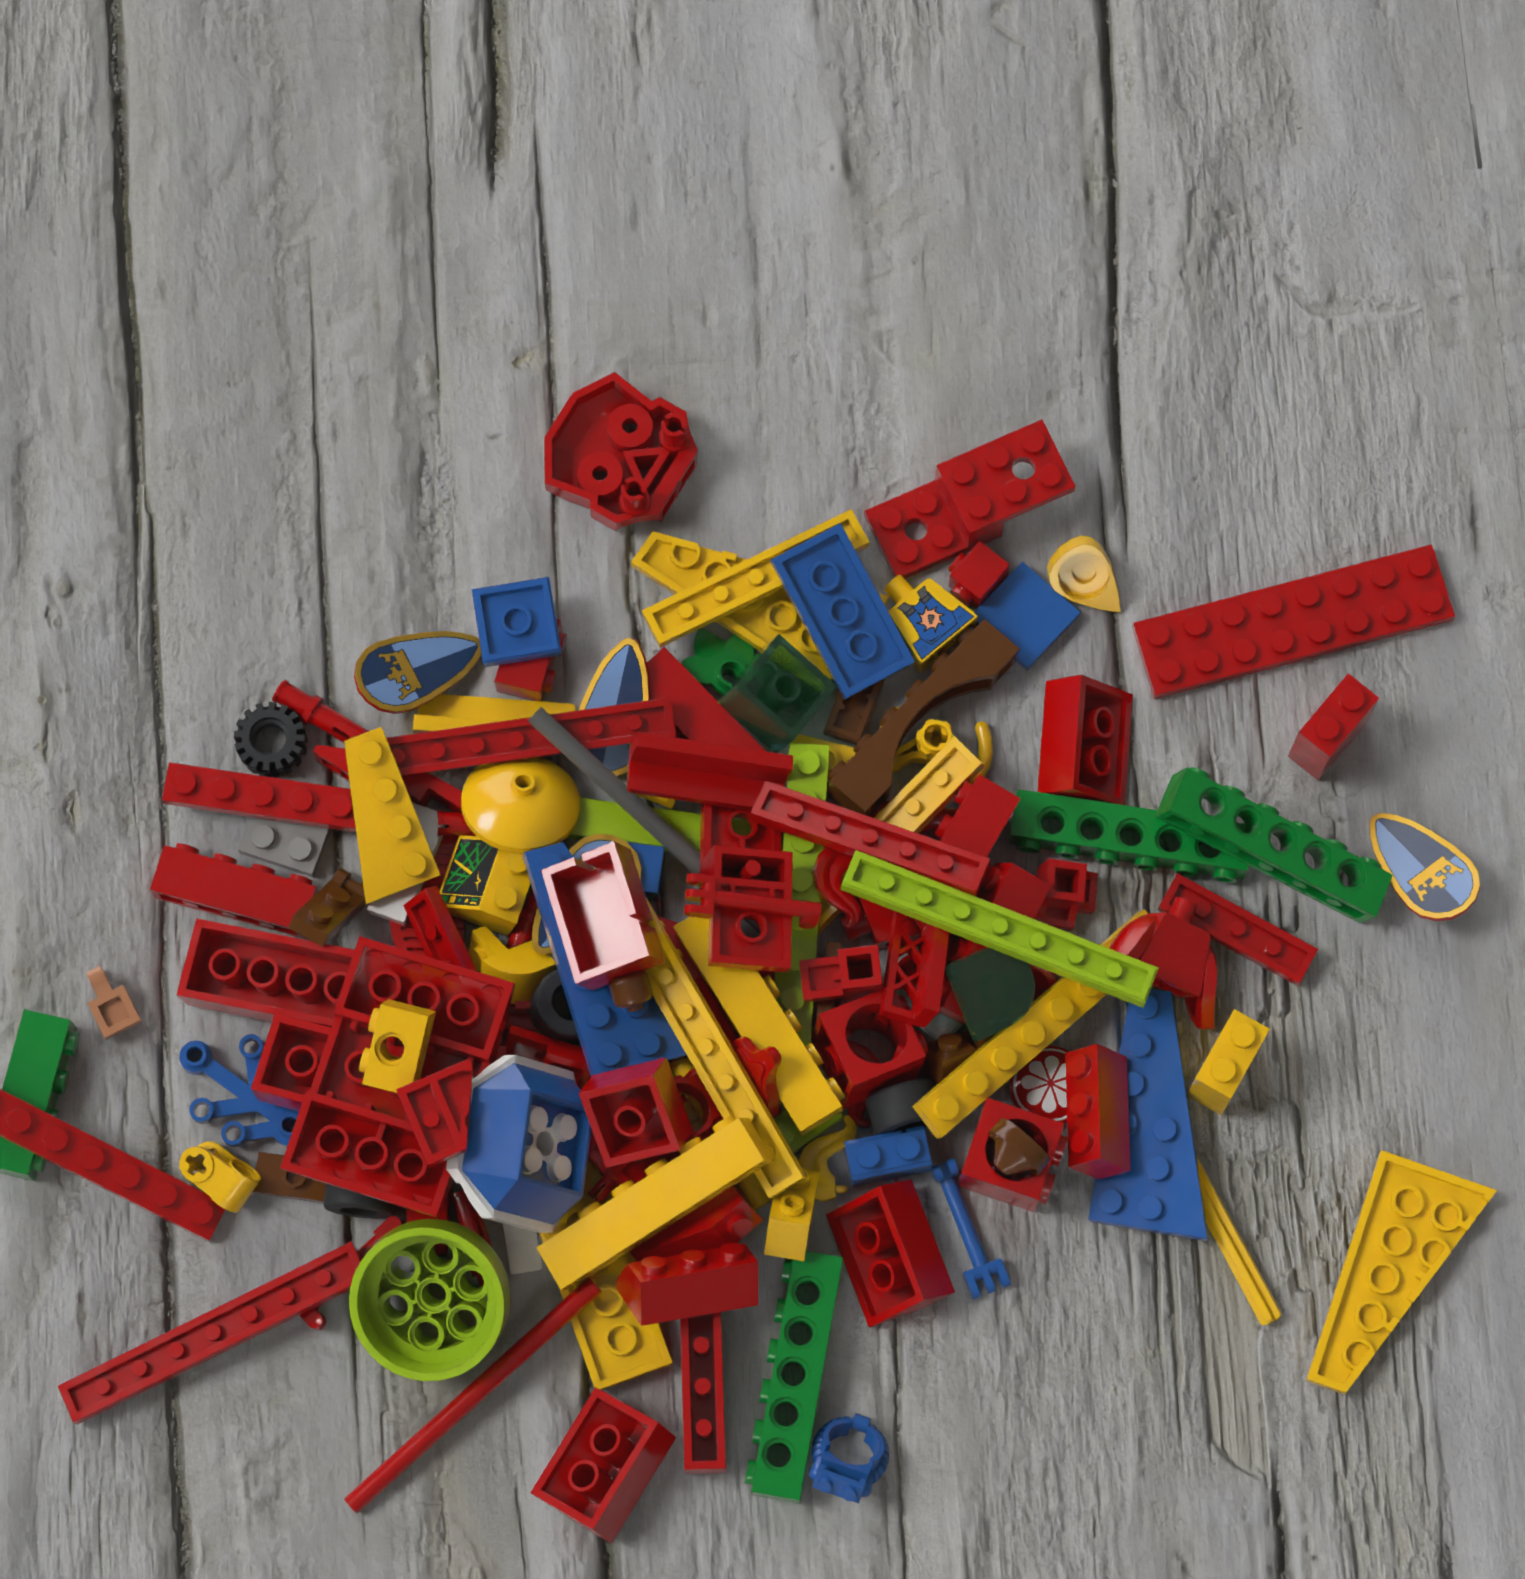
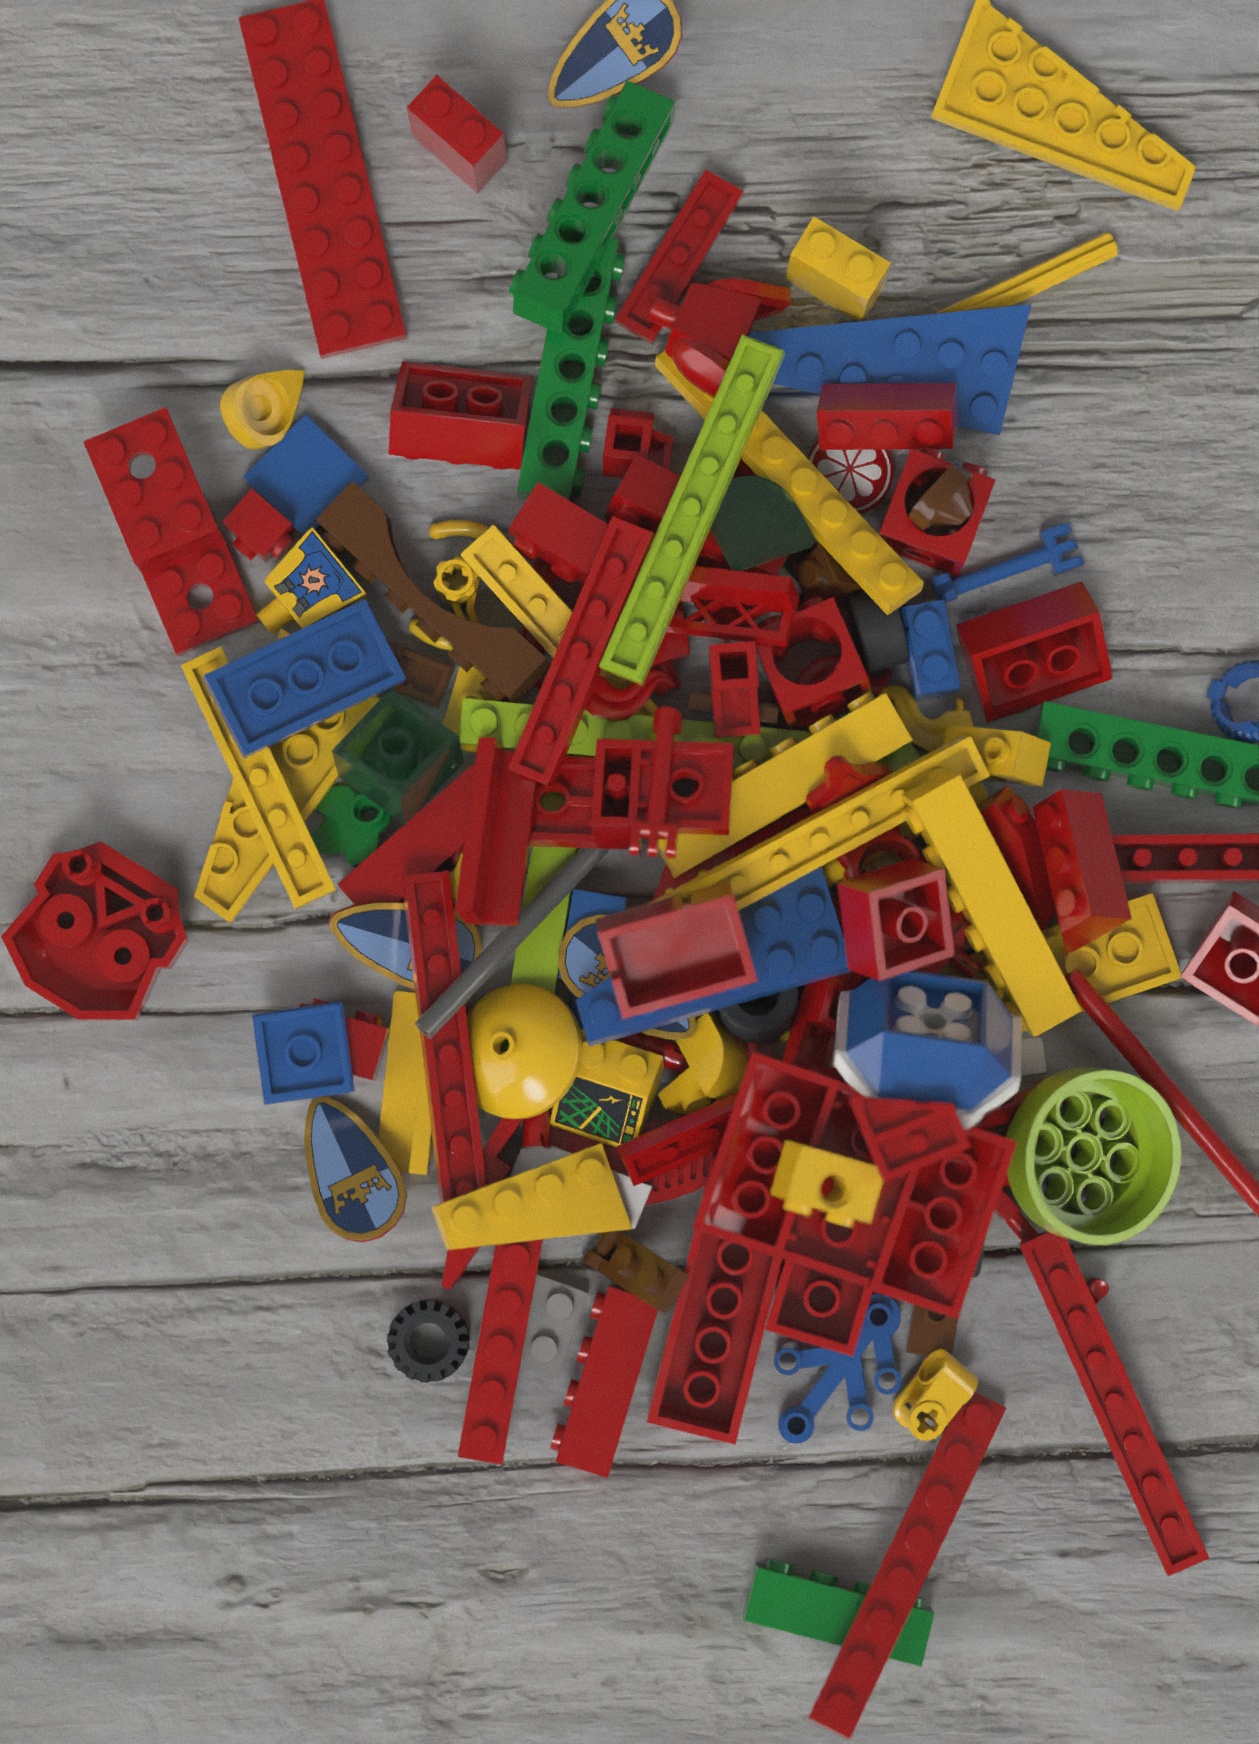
camera: 90 degrees left, 10 degrees up
(113, 1007) = (739, 1520): nougat plate -> none
(315, 712) = (403, 1278): red pin -> none
(630, 990) = (758, 922): reddish brown piece -> none

